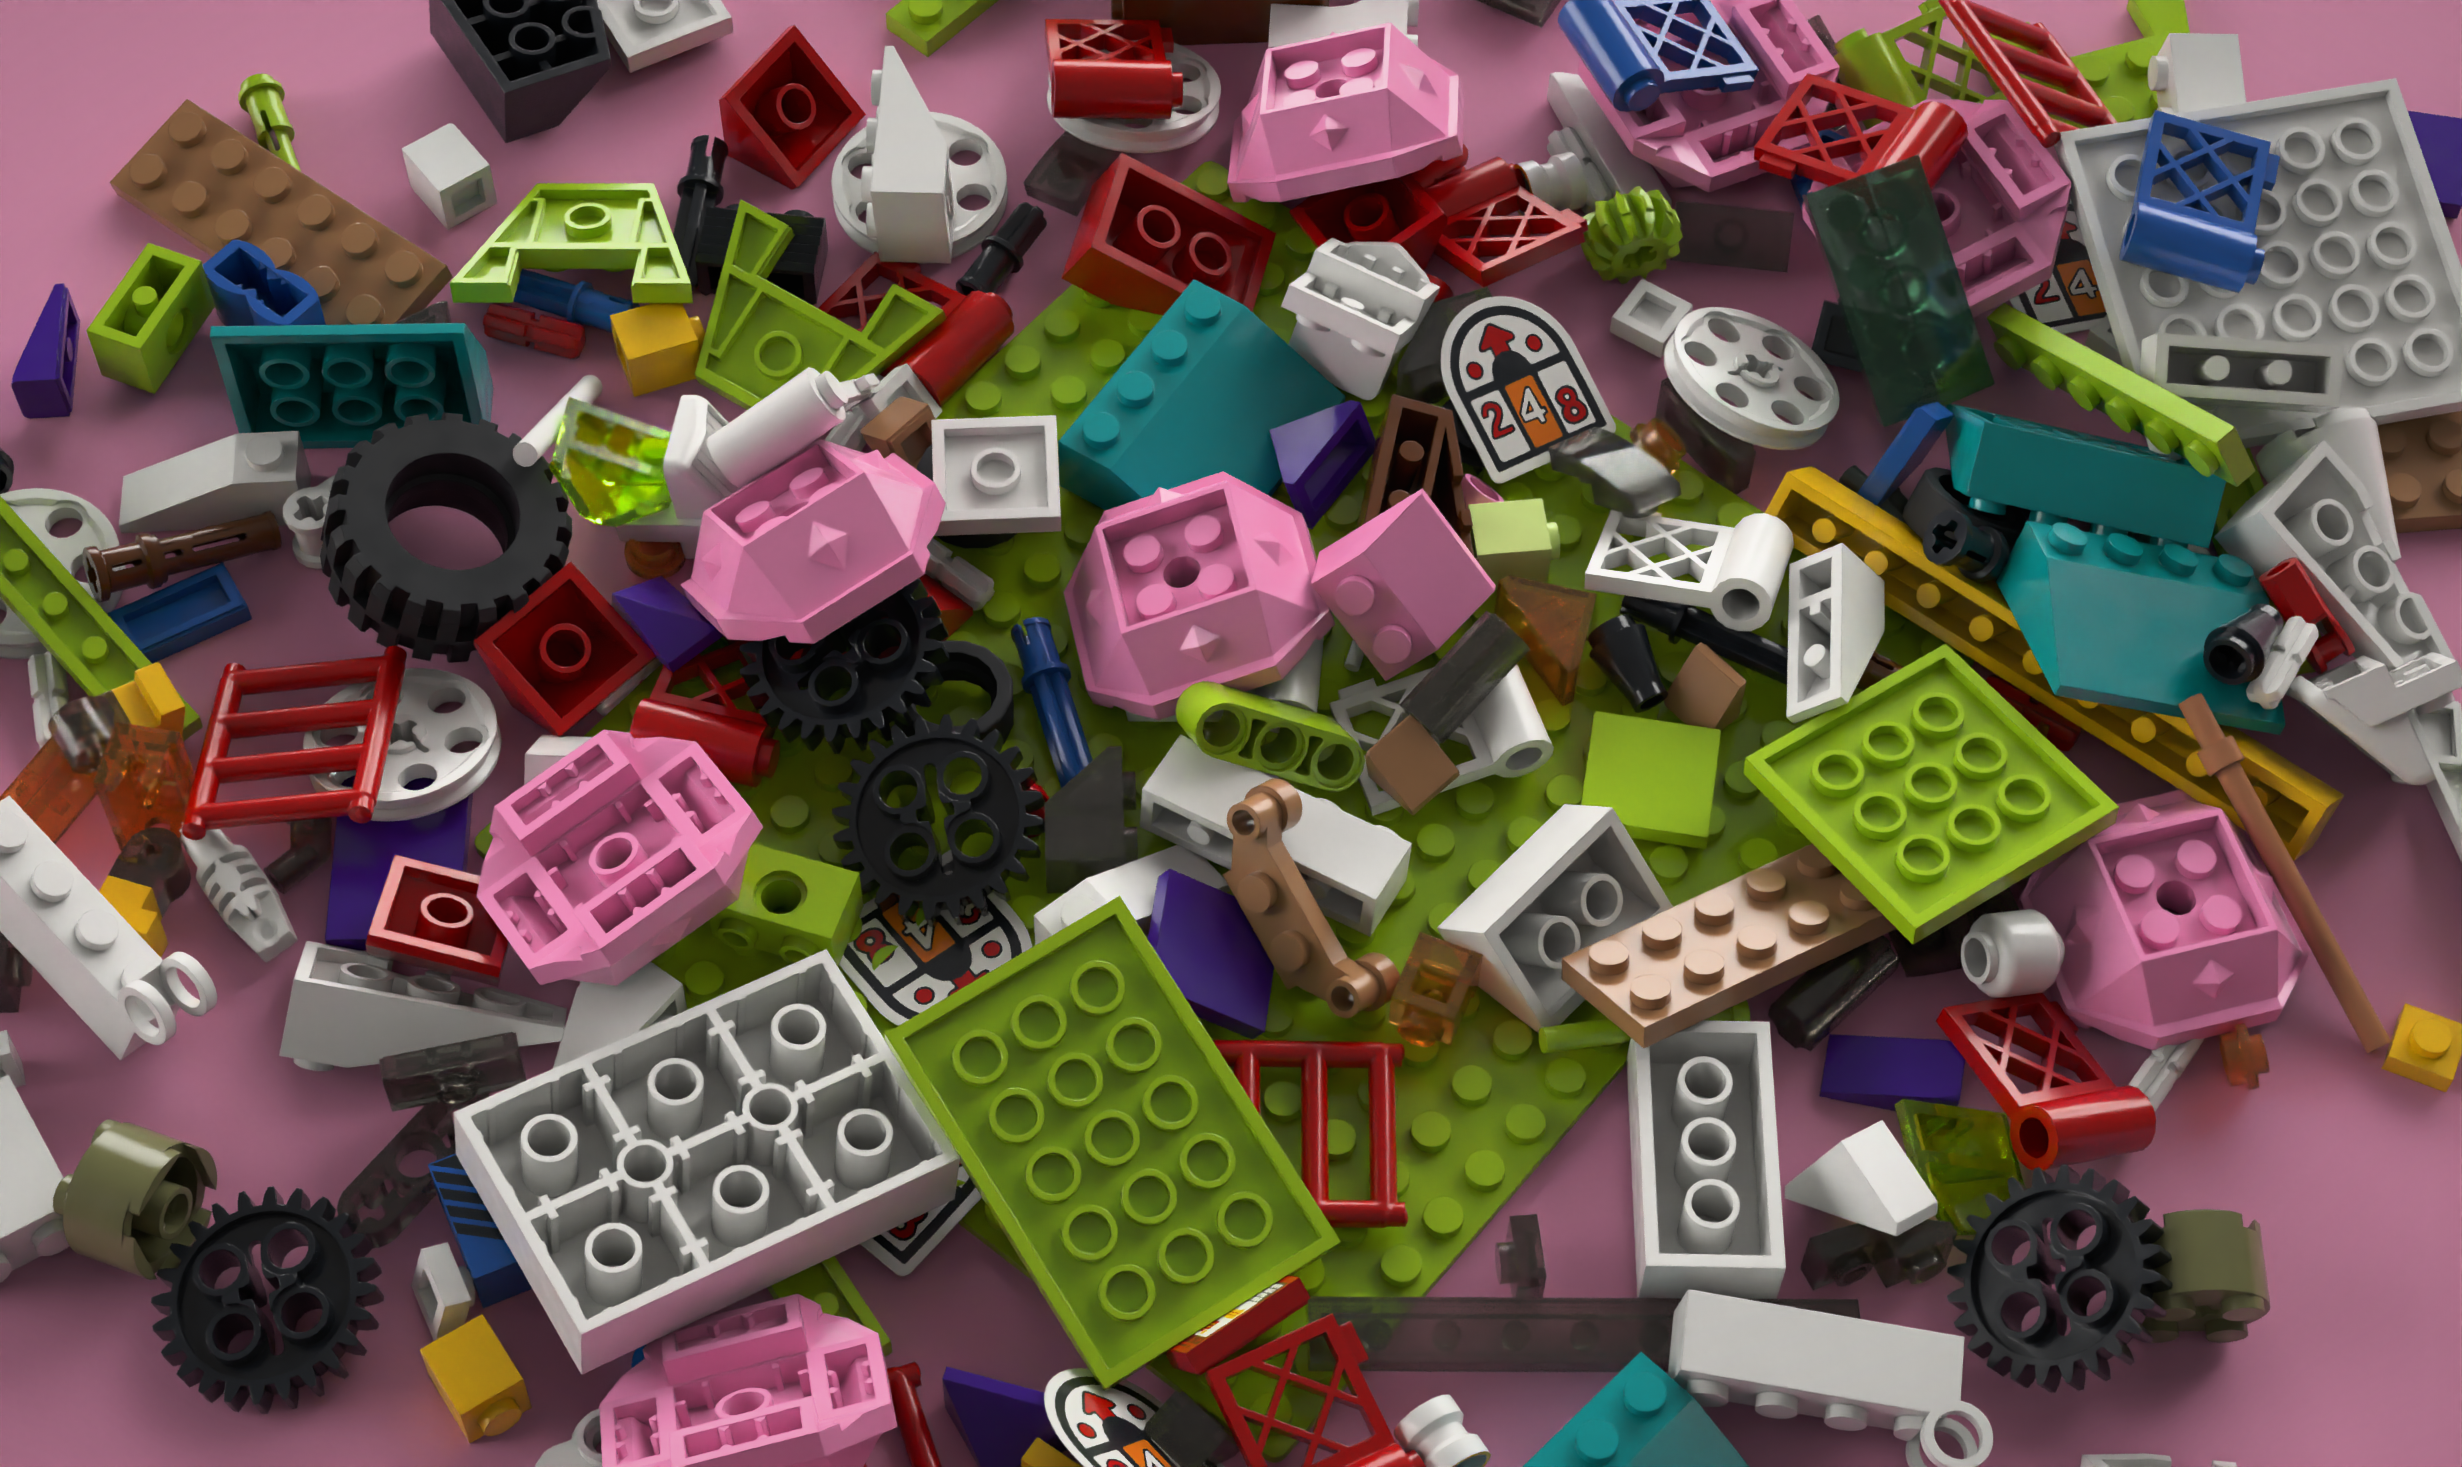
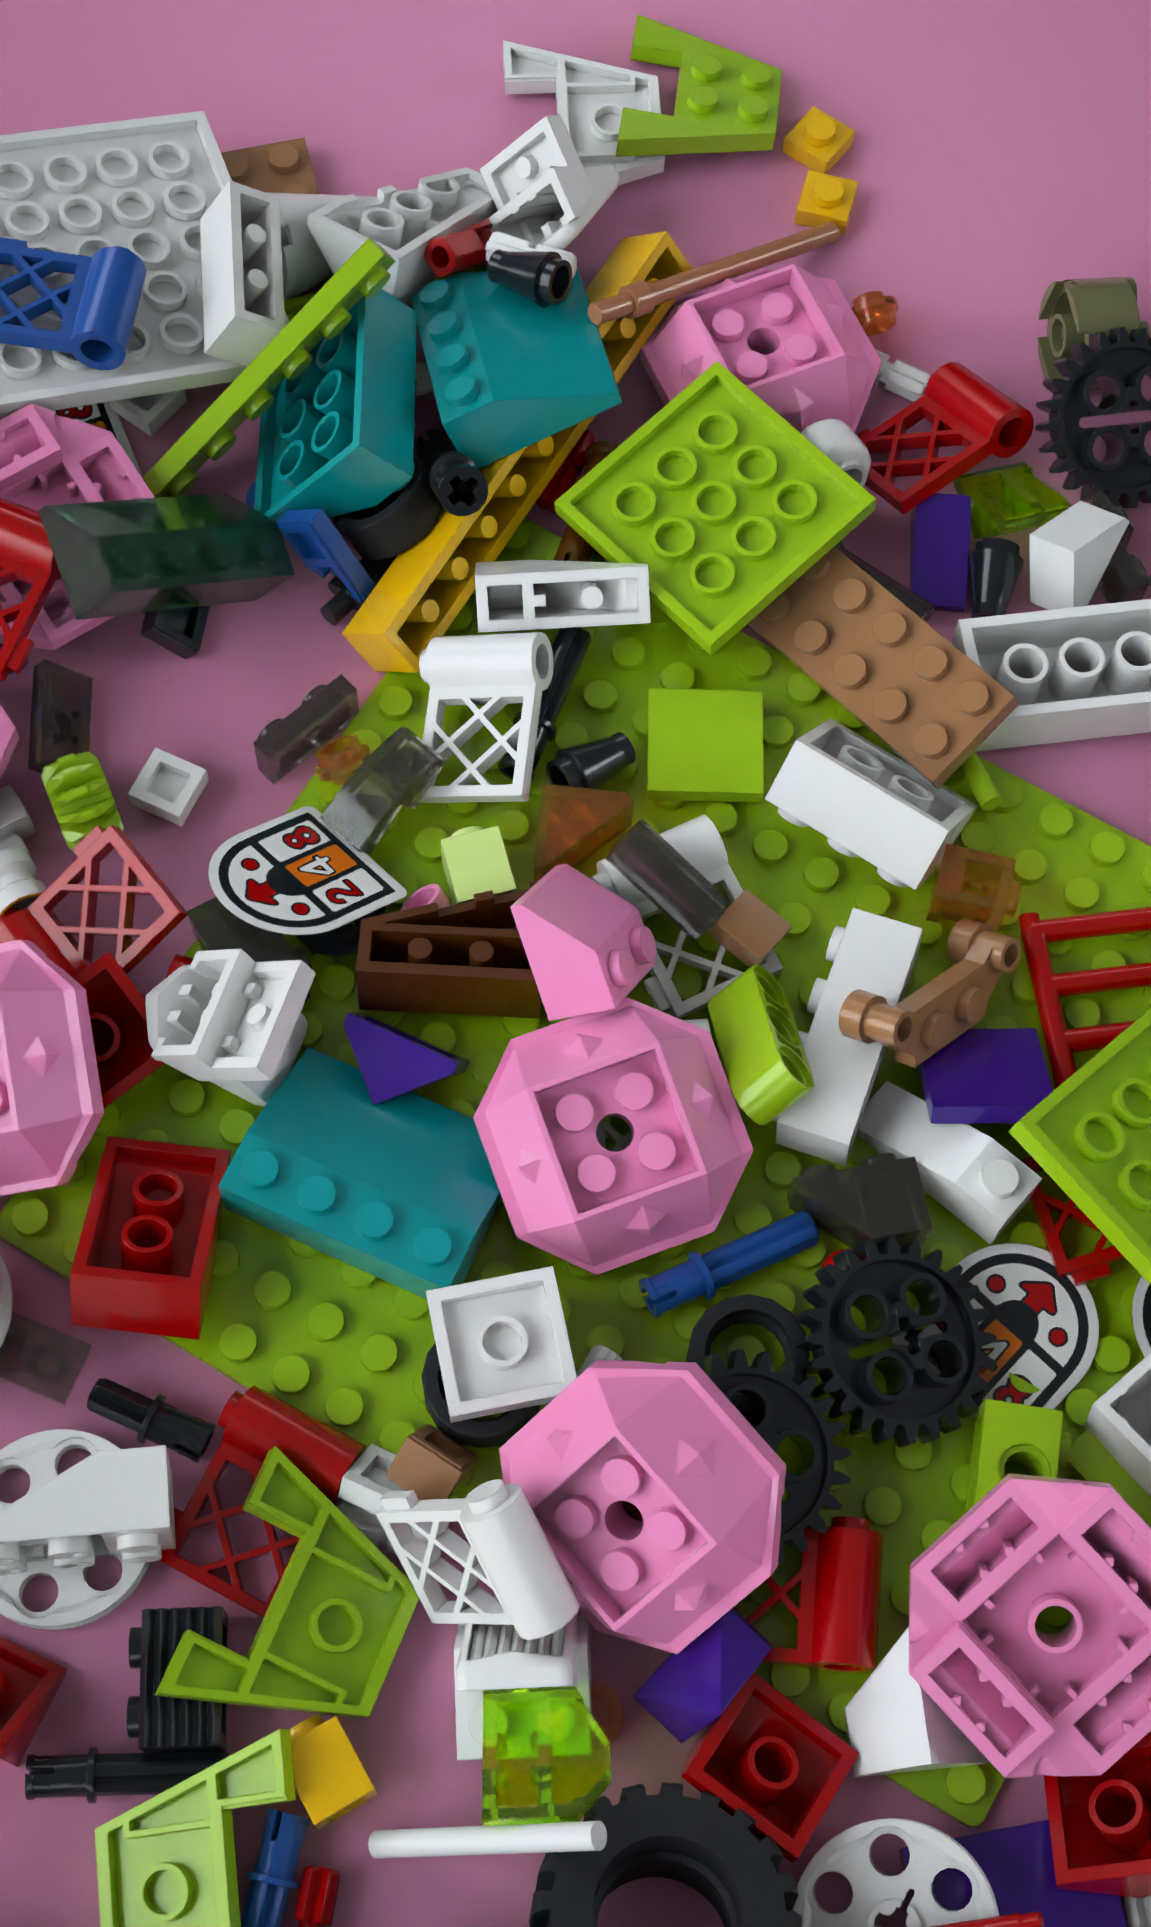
camera: 100 degrees left, 10 degrees up
(1706, 690) = (611, 701): medium nougat slope -> none
(1751, 378) = (232, 703): white wedge -> none
(1845, 1112) = (993, 575): none -> black cone

